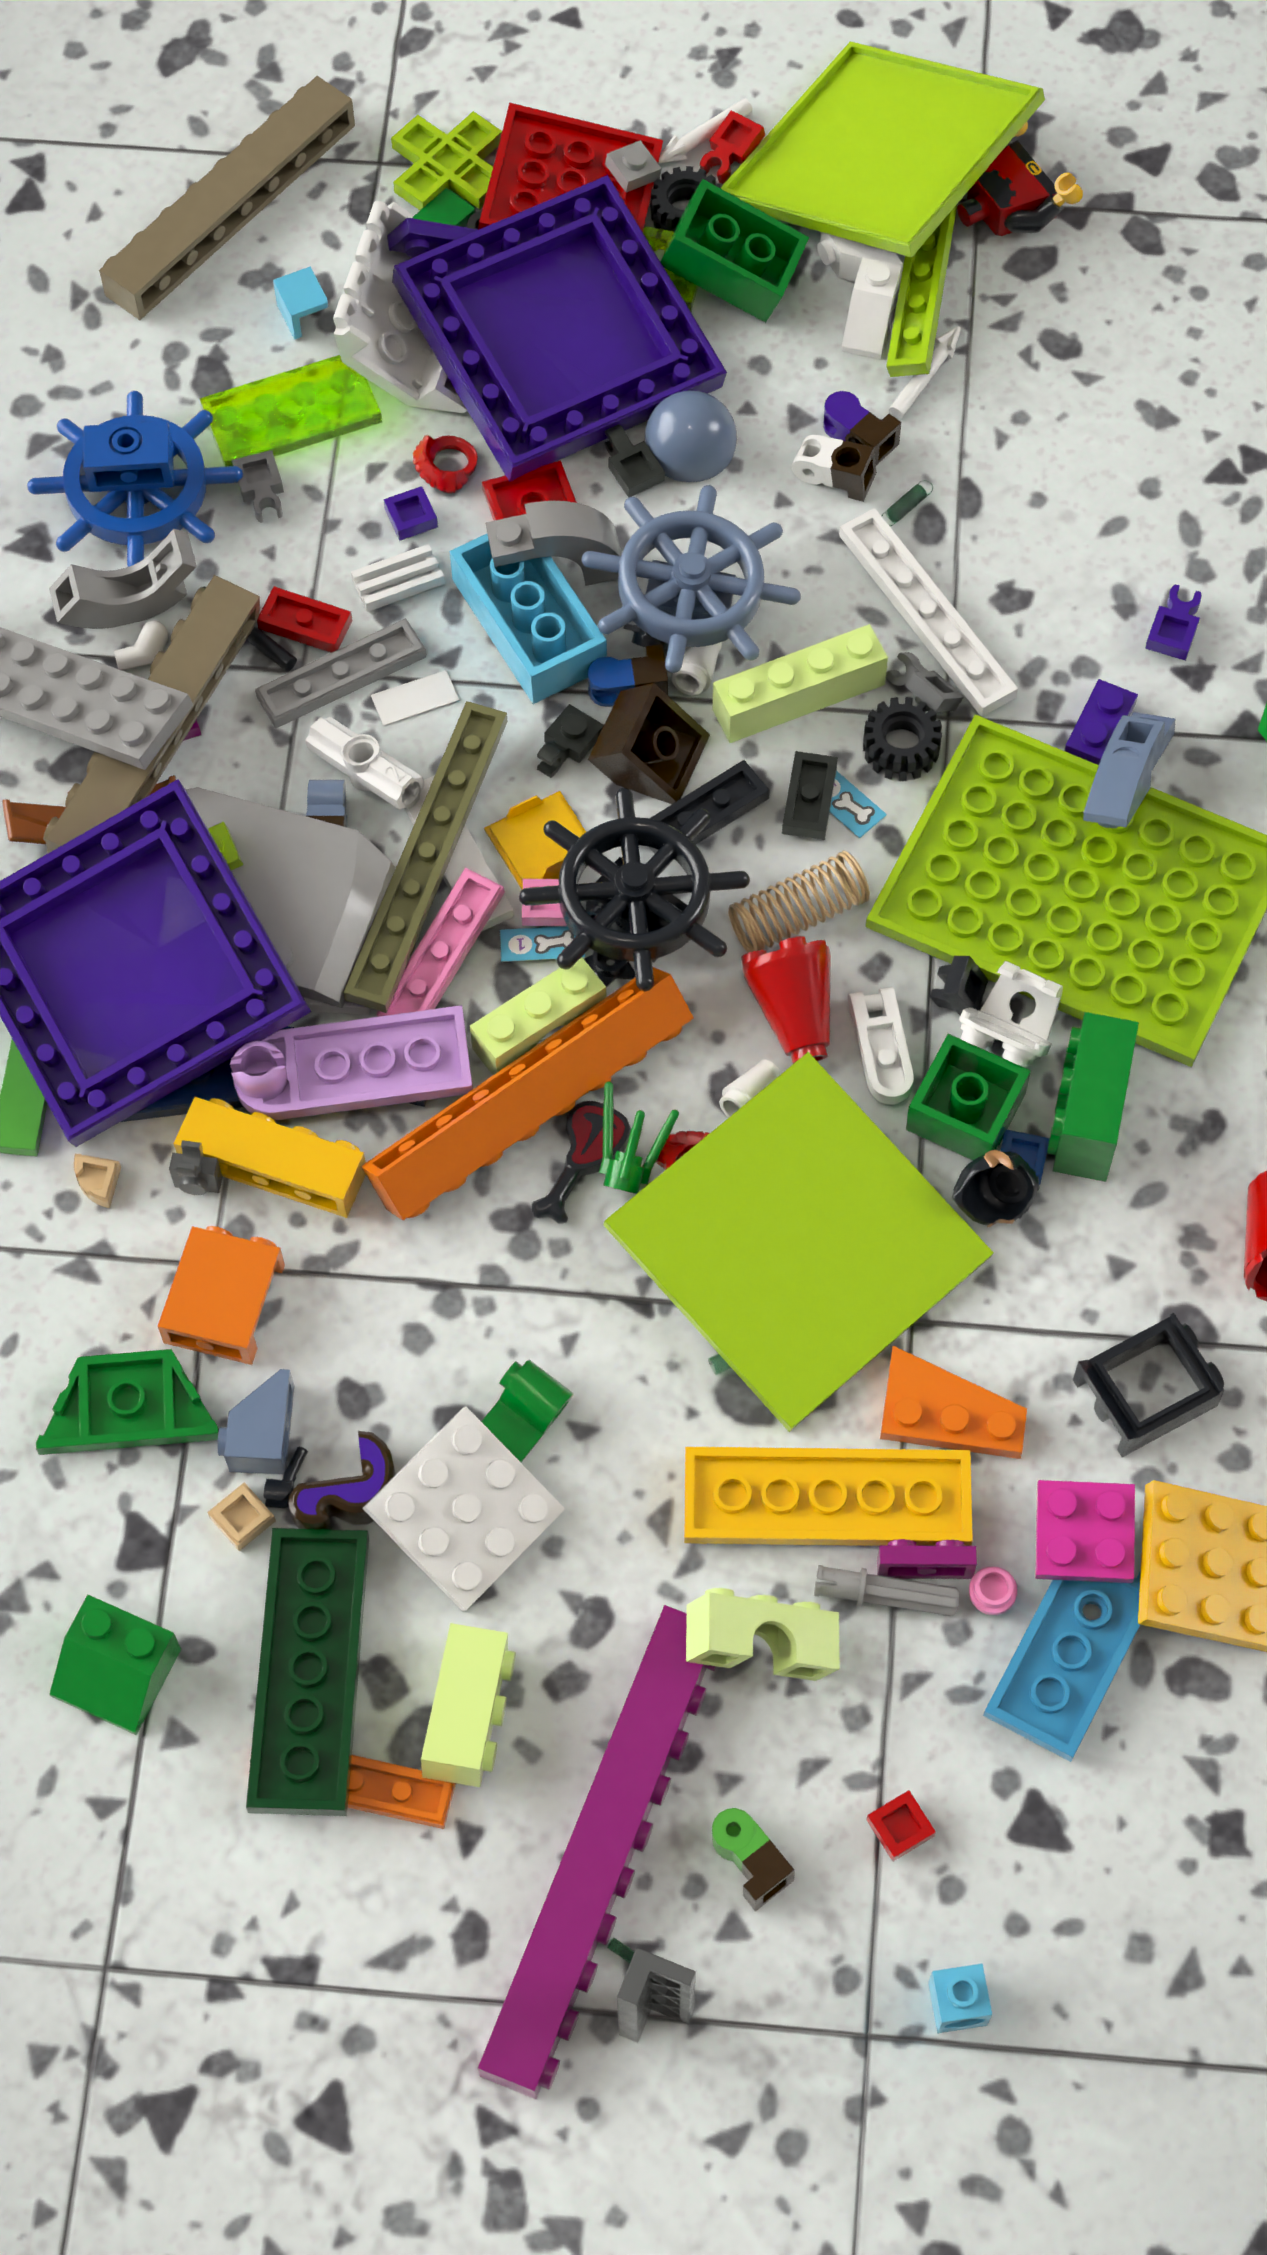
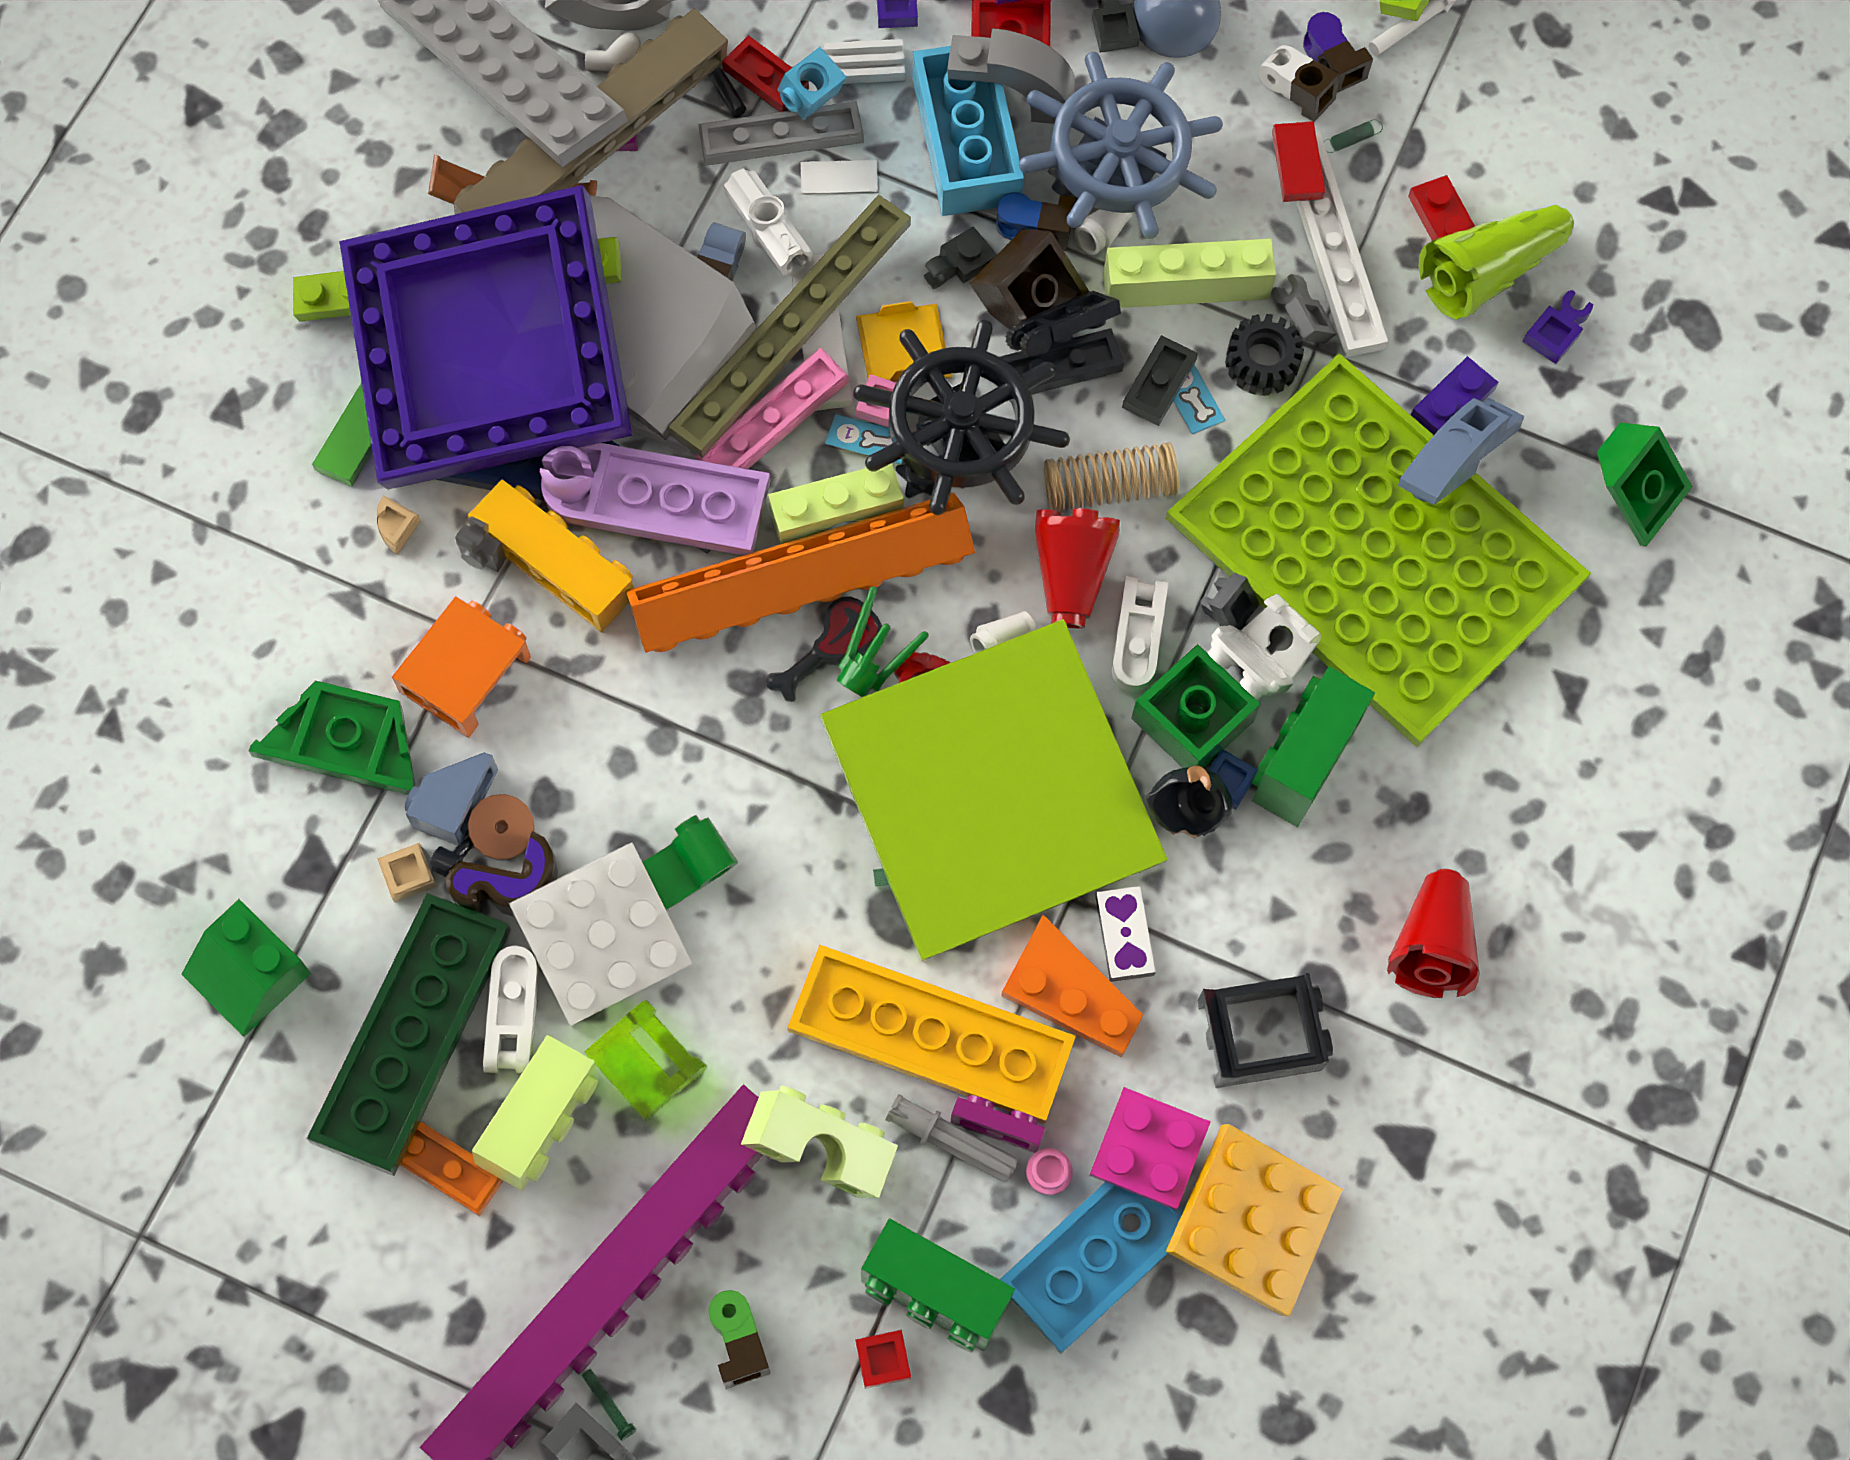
camera: 15 degrees right, 5 degrees up
(321, 1439) = (500, 826): none -> nougat piece
(363, 599) = (822, 73): none -> medium azure brick
(401, 1614) = (511, 1009): none -> white plate
(548, 1632) = (634, 1070): none -> clear neon green plate
(693, 769) = (1061, 322): none -> black hinge
(866, 542) = (1298, 161): none -> red tile
(929, 1734) = (935, 1286): none -> green brick
(979, 1338) = (1125, 934): none -> tile
(1026, 554) = (1440, 208): none -> red plate
(1082, 581) = (1487, 259): none -> lime cone

